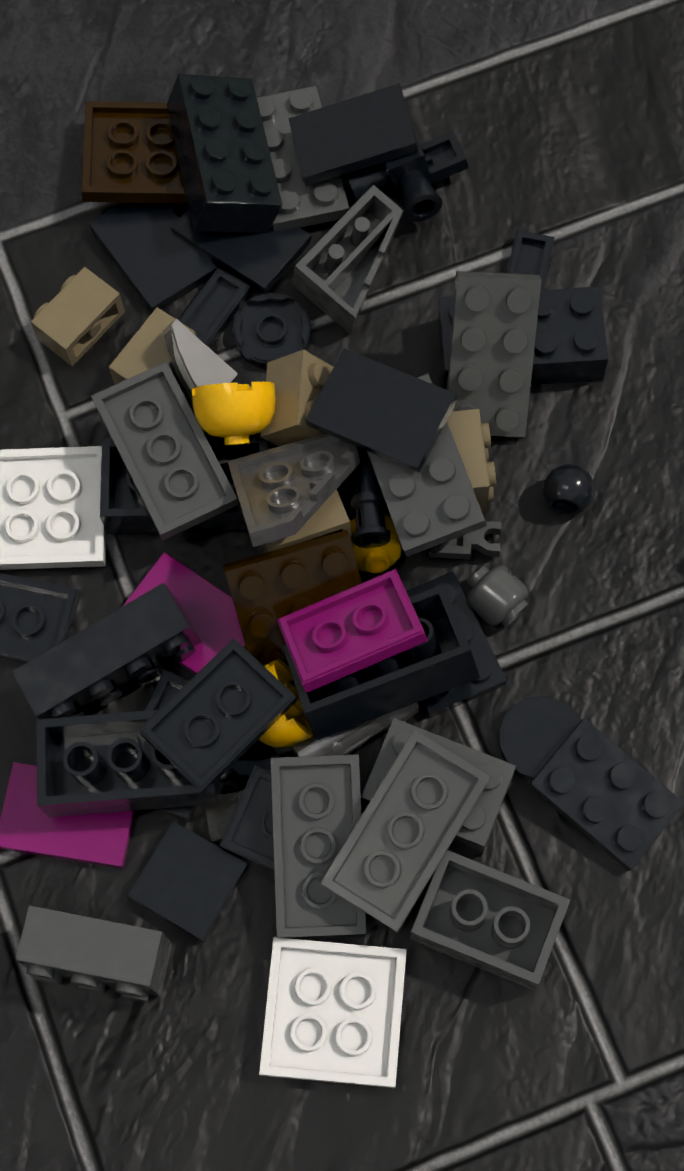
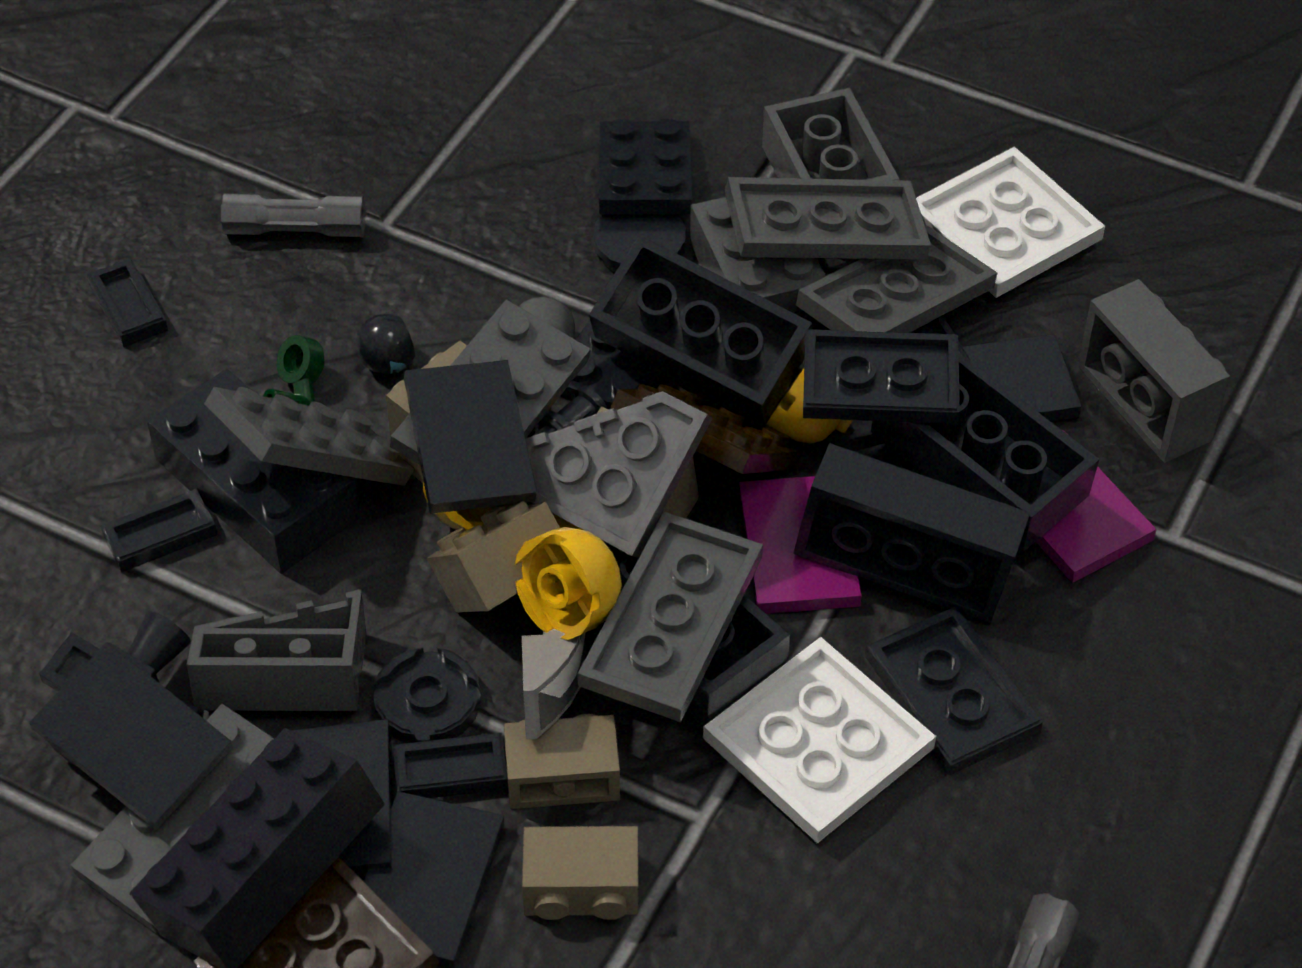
camera: 135 degrees left, 20 degrees down
(351, 630) = (701, 347): magenta tile -> none
(595, 430) = (299, 363): none -> dark green plate

